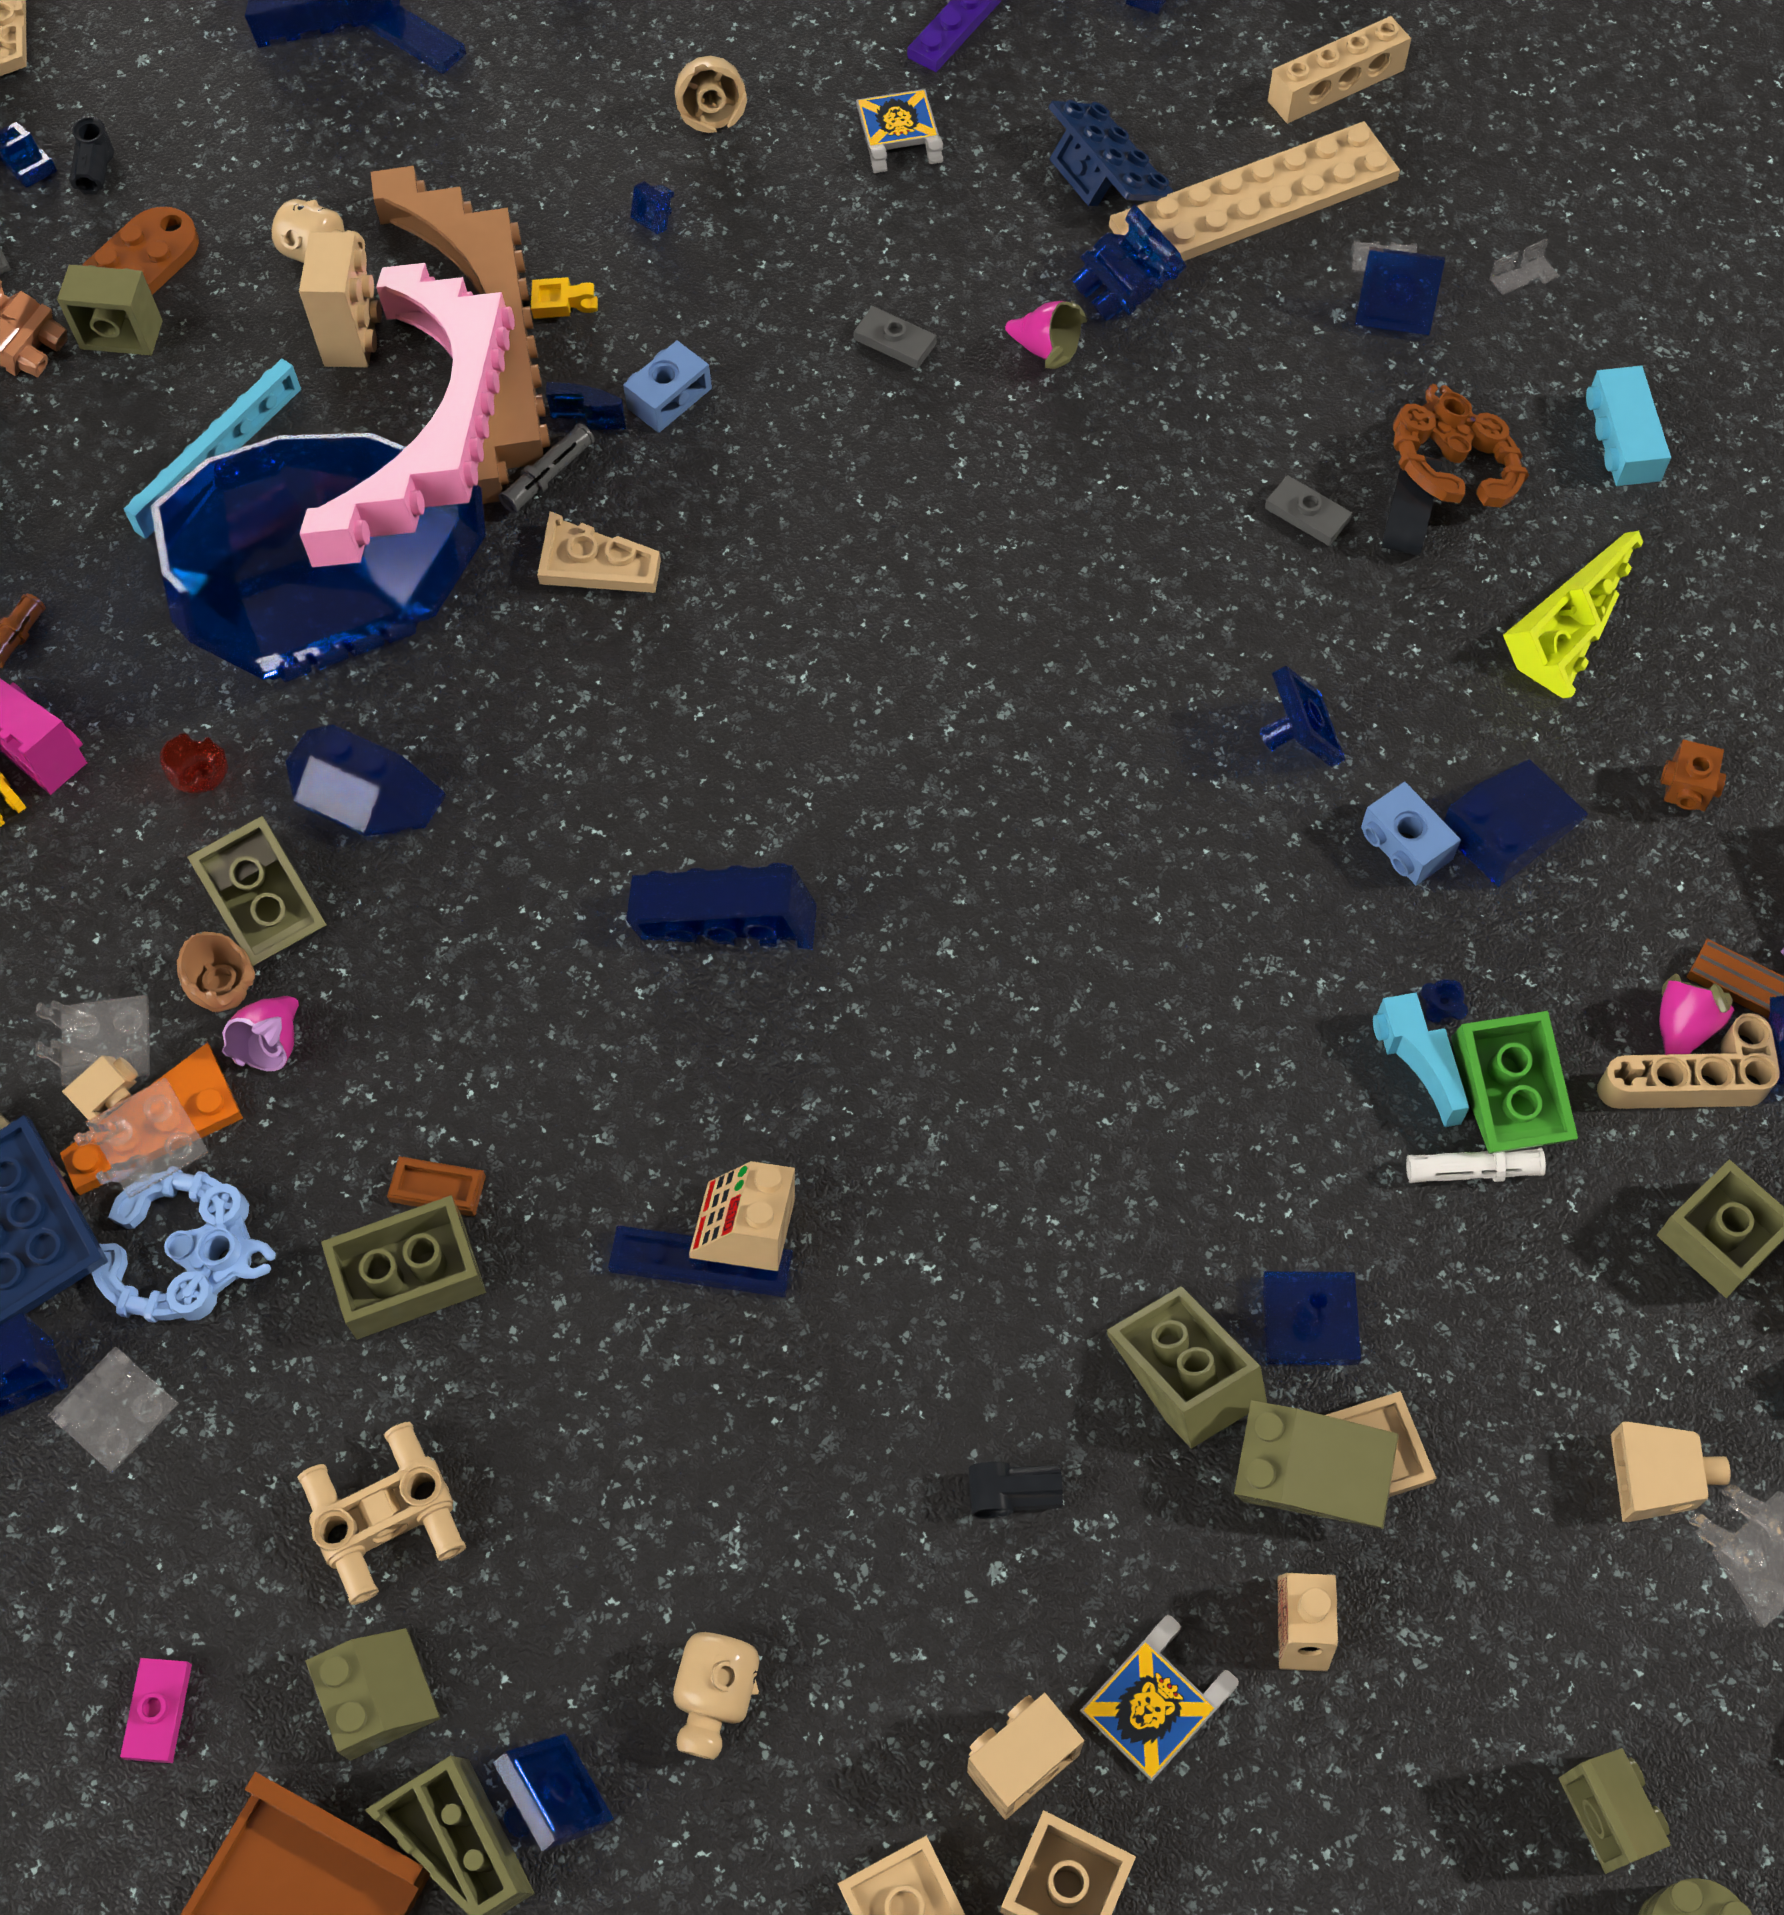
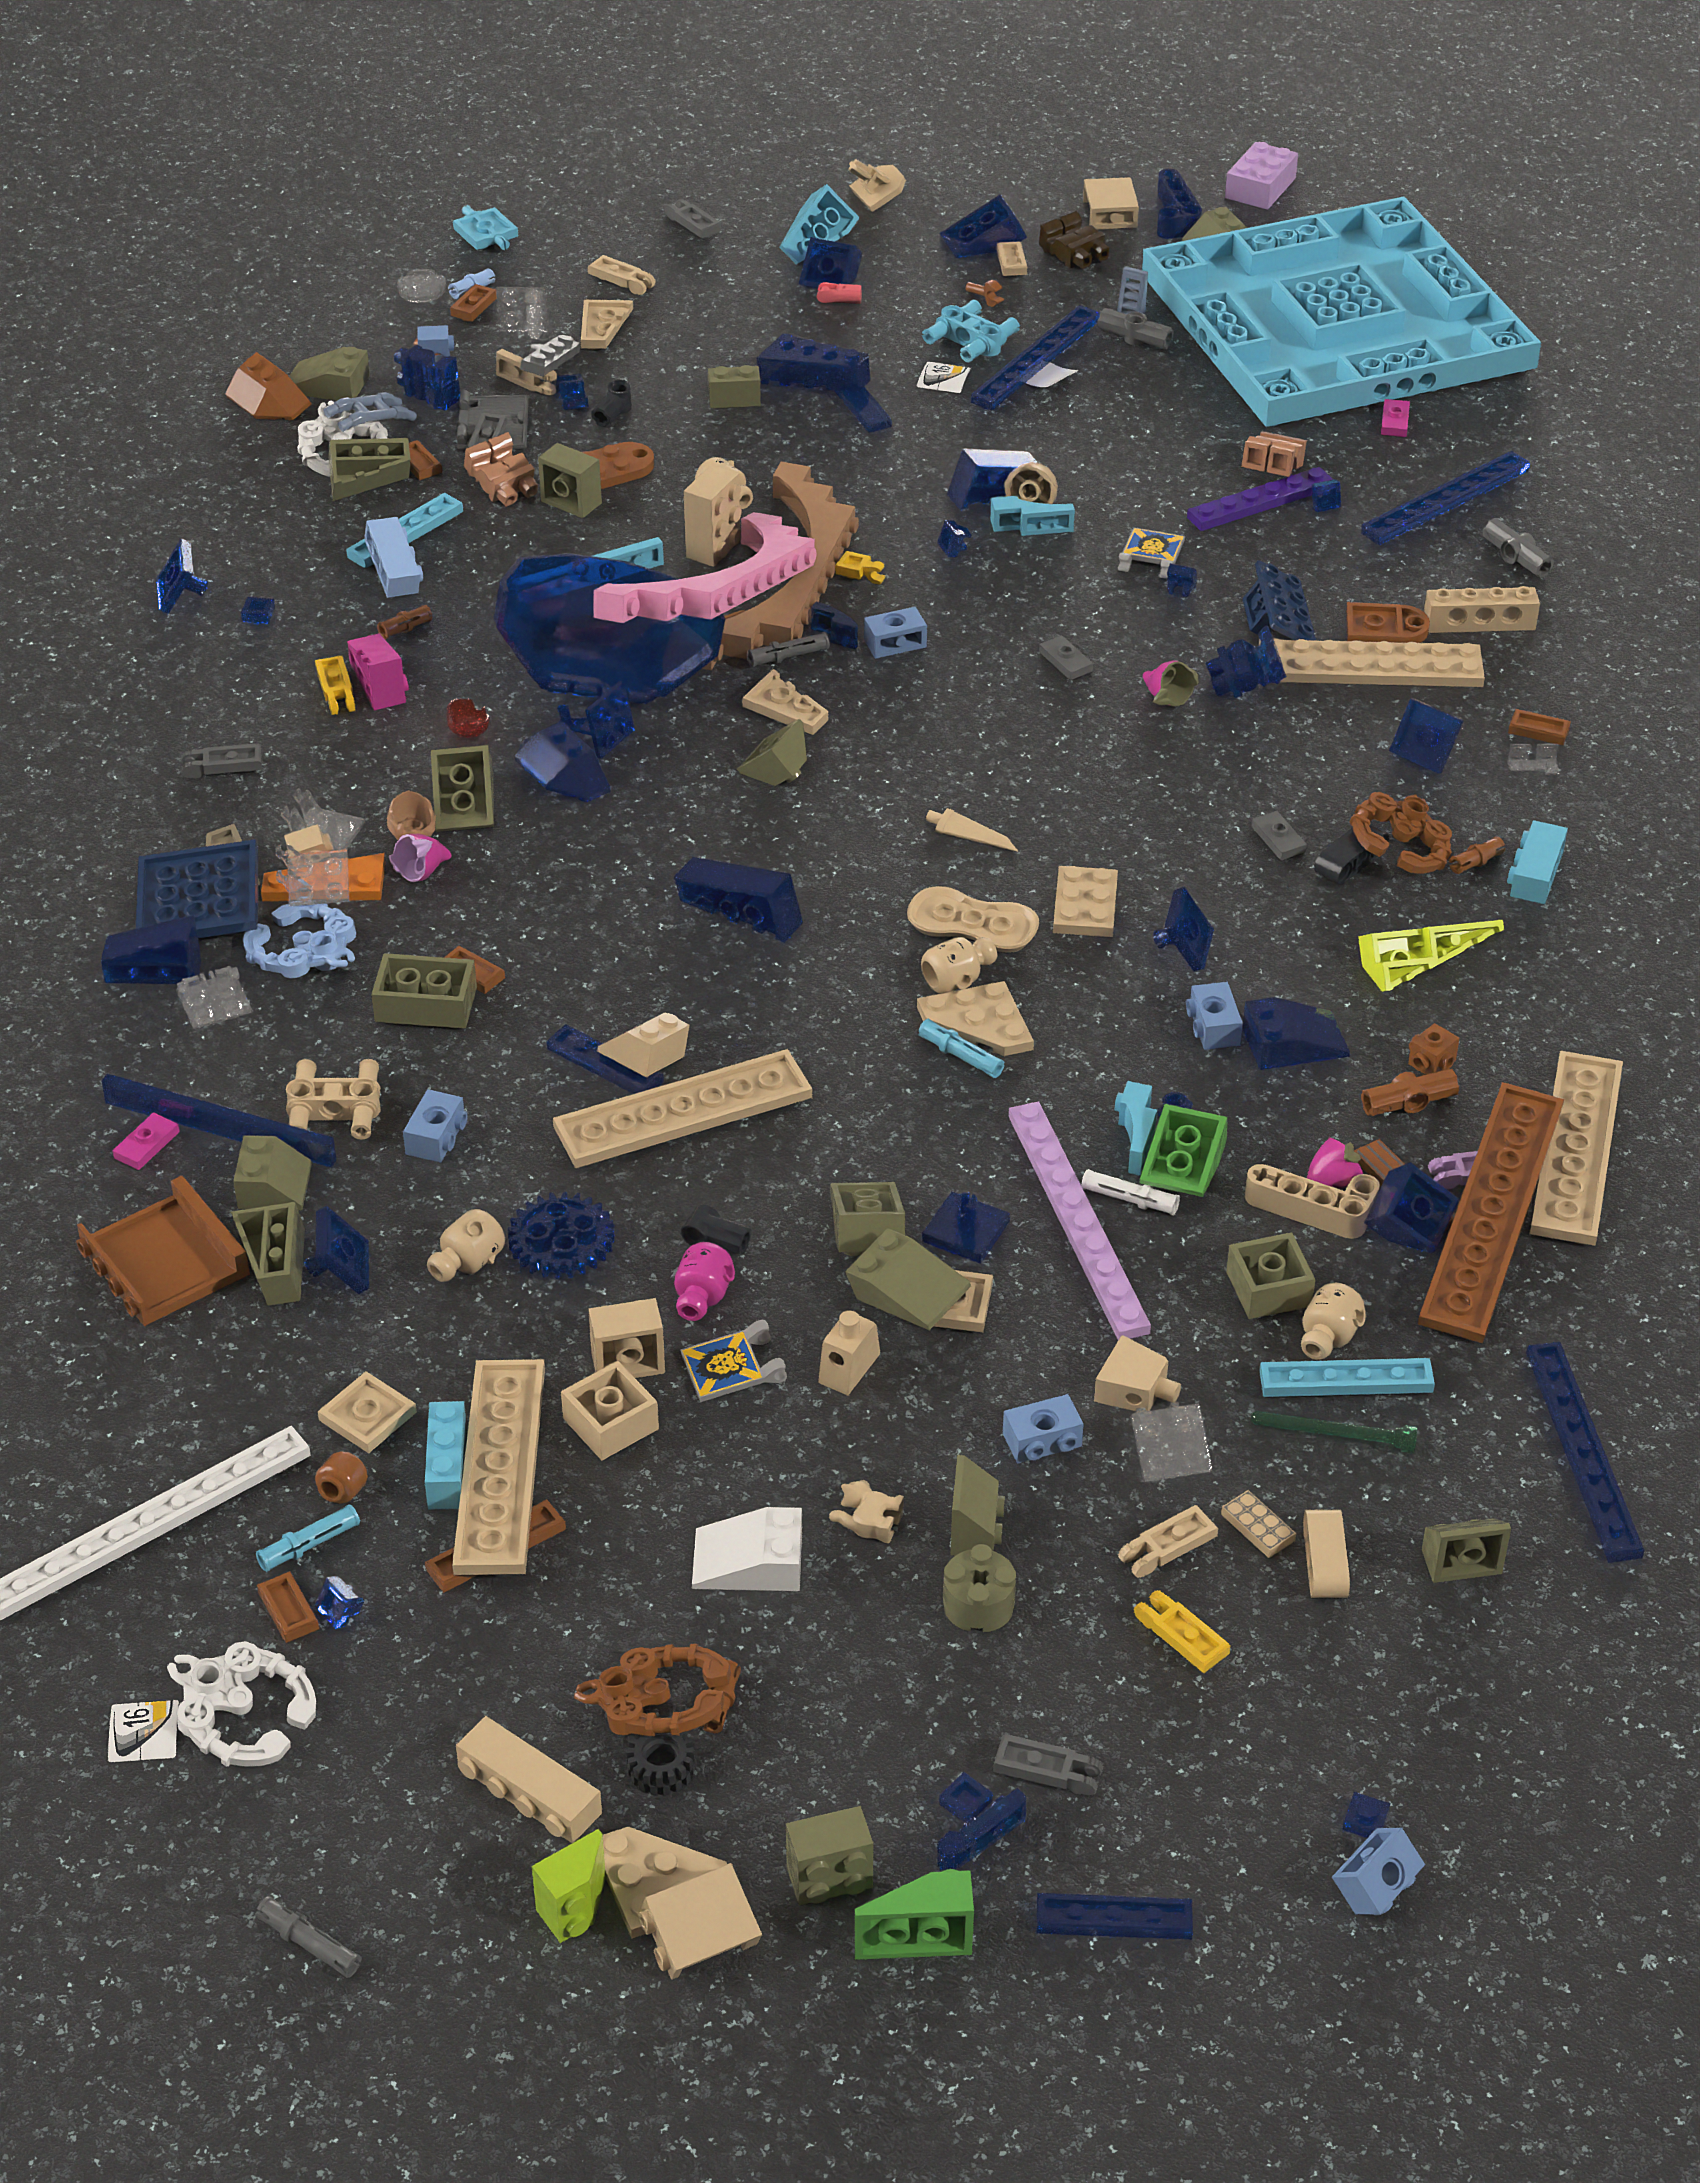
camera: 25 degrees right, 20 degrees down
(234, 70) = (734, 386): none -> olive slope
(240, 1628) = (214, 1118): none -> clear blue tile
(387, 700) = (607, 720): none -> clear blue plate
(533, 1467) = (434, 1126): none -> medium blue brick
(635, 650) = (777, 756): none -> olive slope
(640, 91) = (983, 475): none -> clear blue wedge
(726, 135) = (1030, 517): none -> medium azure slope
(779, 1596) = (561, 1235): none -> clear blue gear
(848, 1300) = (681, 1108): none -> tan plate
(926, 663) = (963, 827): none -> tan bar
(965, 156) = (1183, 577): none -> clear blue tile
(997, 813) = (952, 913): none -> tan plate
(1050, 1587) = (702, 1279): none -> dark pink piece
(1060, 897) = (956, 963): none -> tan piece
(1127, 963) = (980, 1016): none -> tan plate
(1139, 1028) = (951, 1042): none -> medium azure pin
(1144, 716) = (1085, 901): none -> tan plate
(1238, 133) = (1385, 623): none -> dark orange plate
(1439, 1240) = (1079, 1222): none -> lavender plate
(1484, 1865) = (873, 1514): none -> tan animal
(1499, 216) = (1539, 727): none -> dark orange tile
(1552, 444) = (1477, 855): none -> dark orange pin
(1583, 1631) = (1042, 1428): none -> medium blue brick
(1699, 849) = (1410, 1092): none -> dark orange piece

